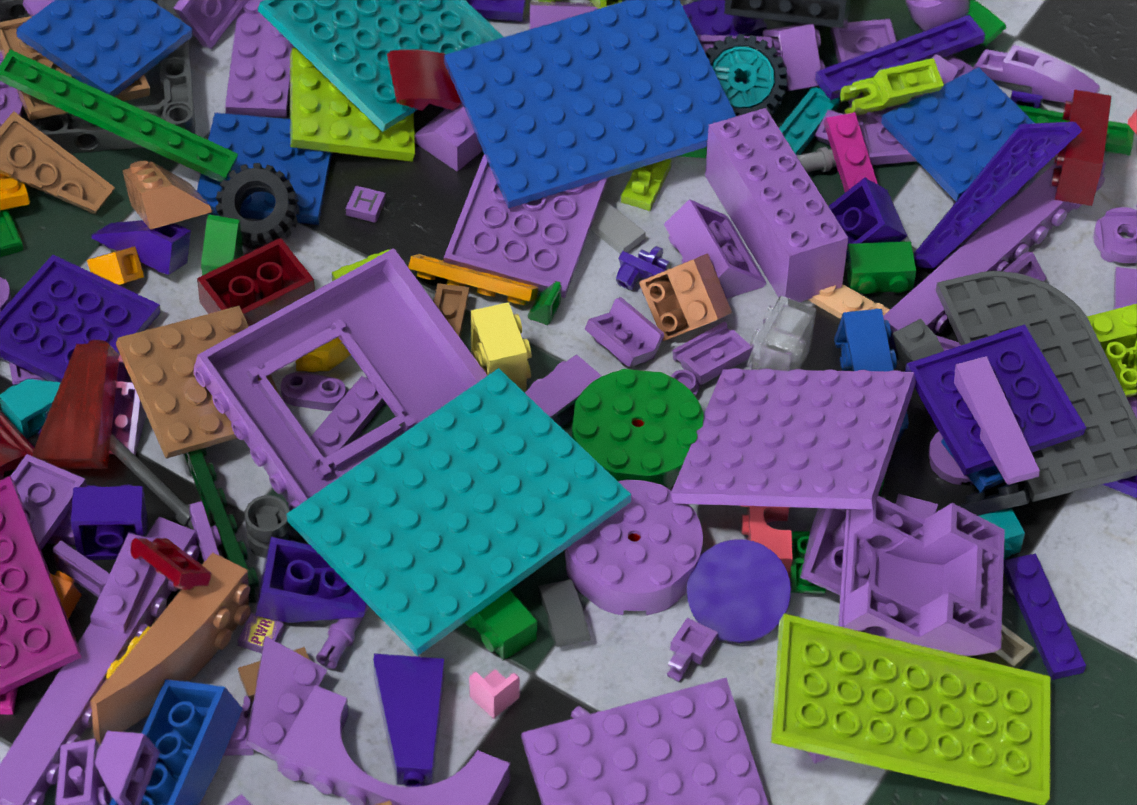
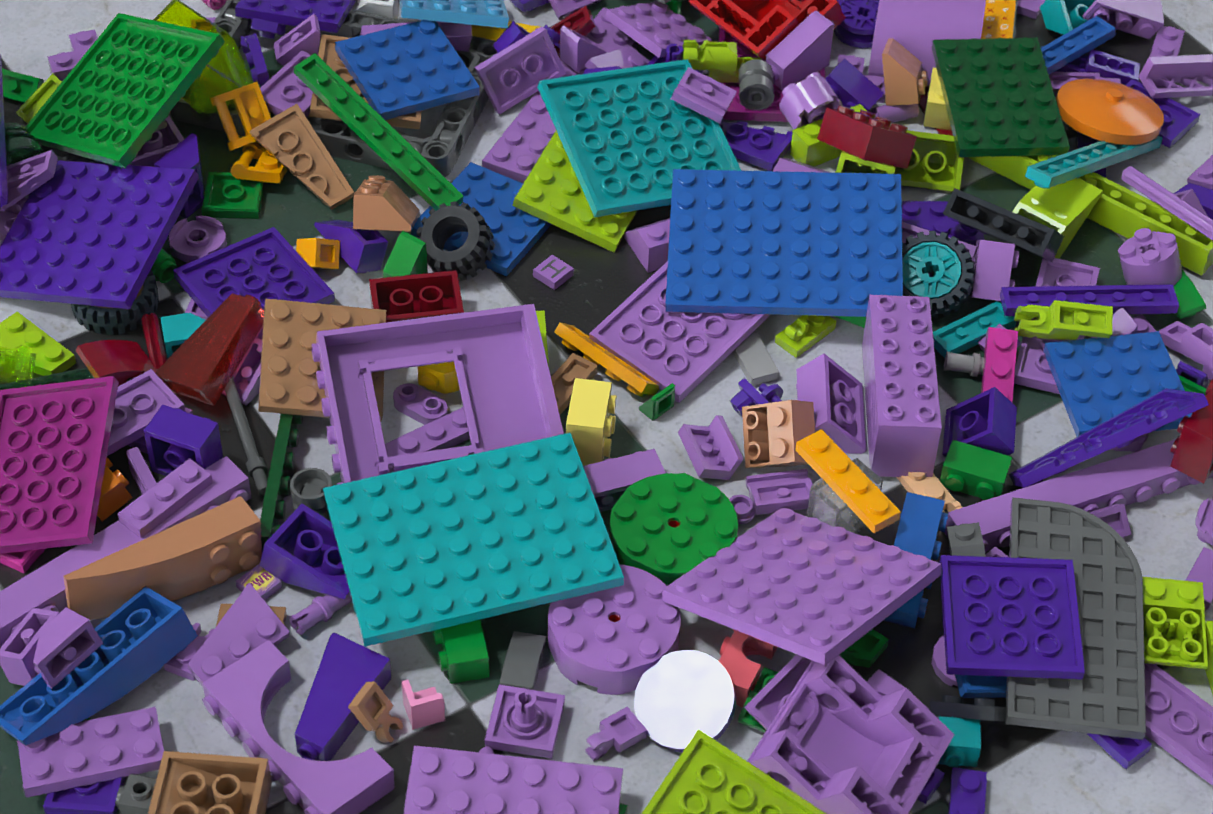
camera: 25 degrees right, 5 degrees down
(171, 562) = (199, 491): dark red plate -> none
(207, 536) = (255, 482): medium lavender plate -> none
(422, 79) = (646, 184): dark red slope -> none
(456, 715) = (372, 711): none -> medium nougat plate
(599, 669) = (525, 721): none -> medium lavender plate
(786, 321) = (848, 481): none -> light orange plate
(997, 422) = (995, 633): medium lavender slope -> none

